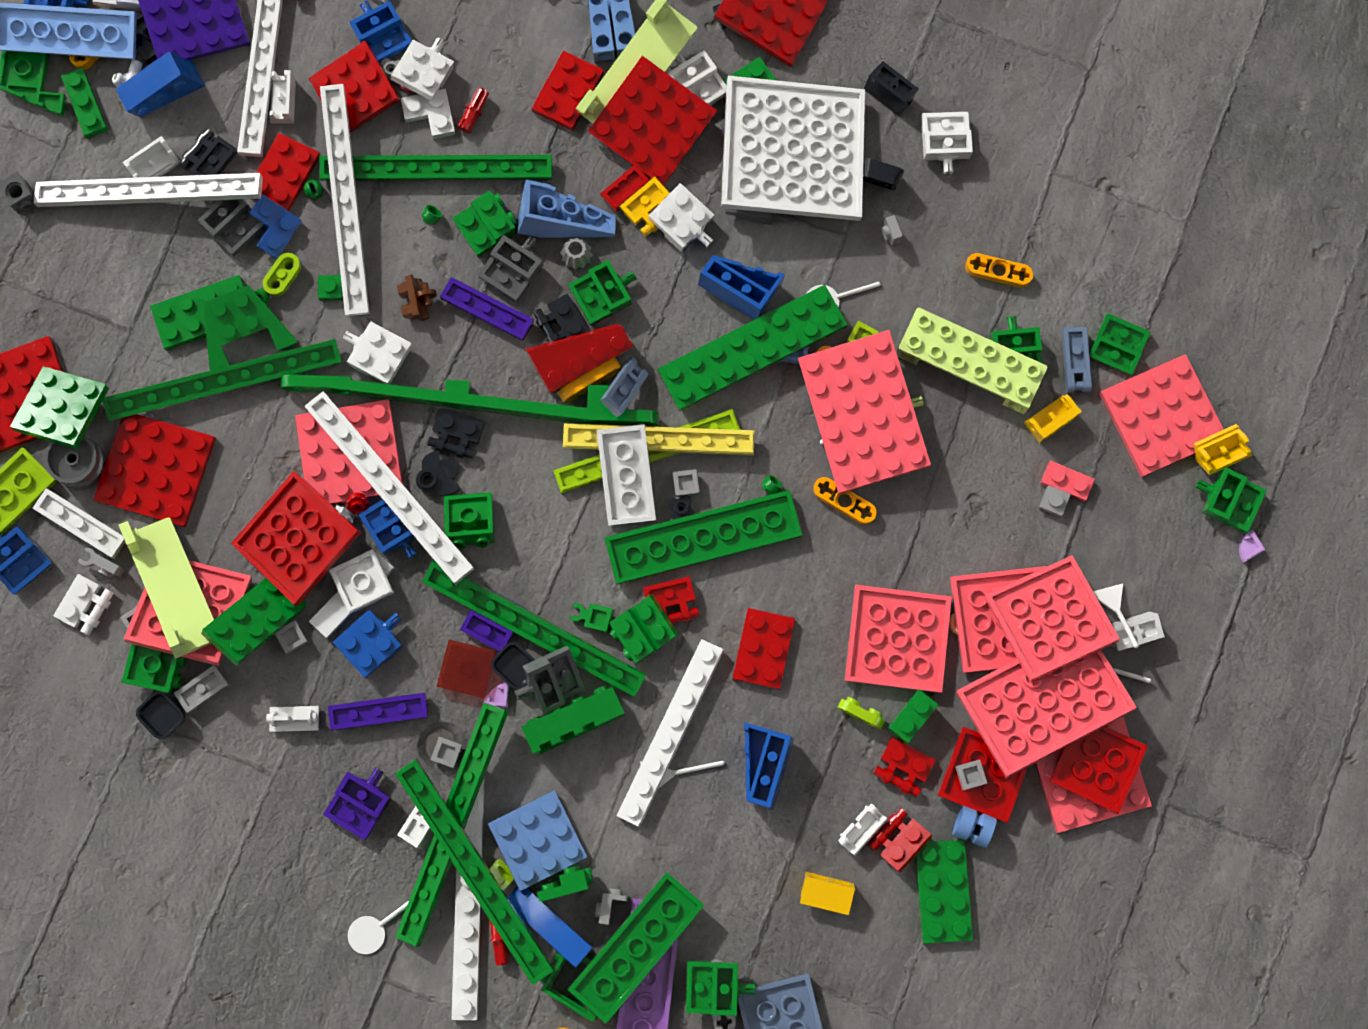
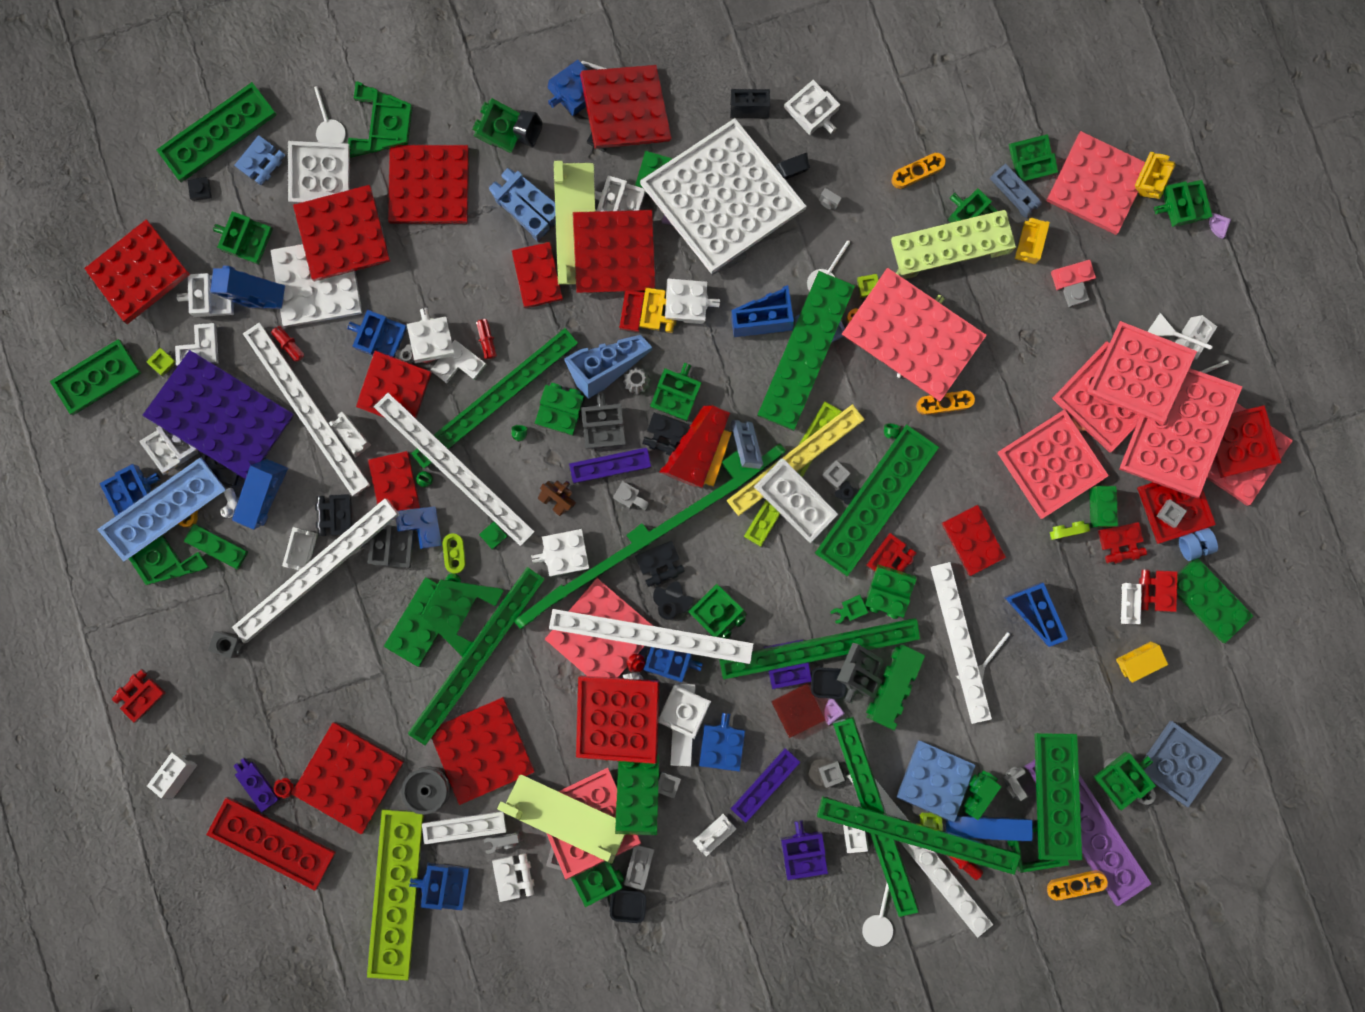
camera: 45 degrees left, 5 degrees up
(59, 407) = (387, 764): plate -> none
(480, 350) = (628, 496): none -> light grey plate

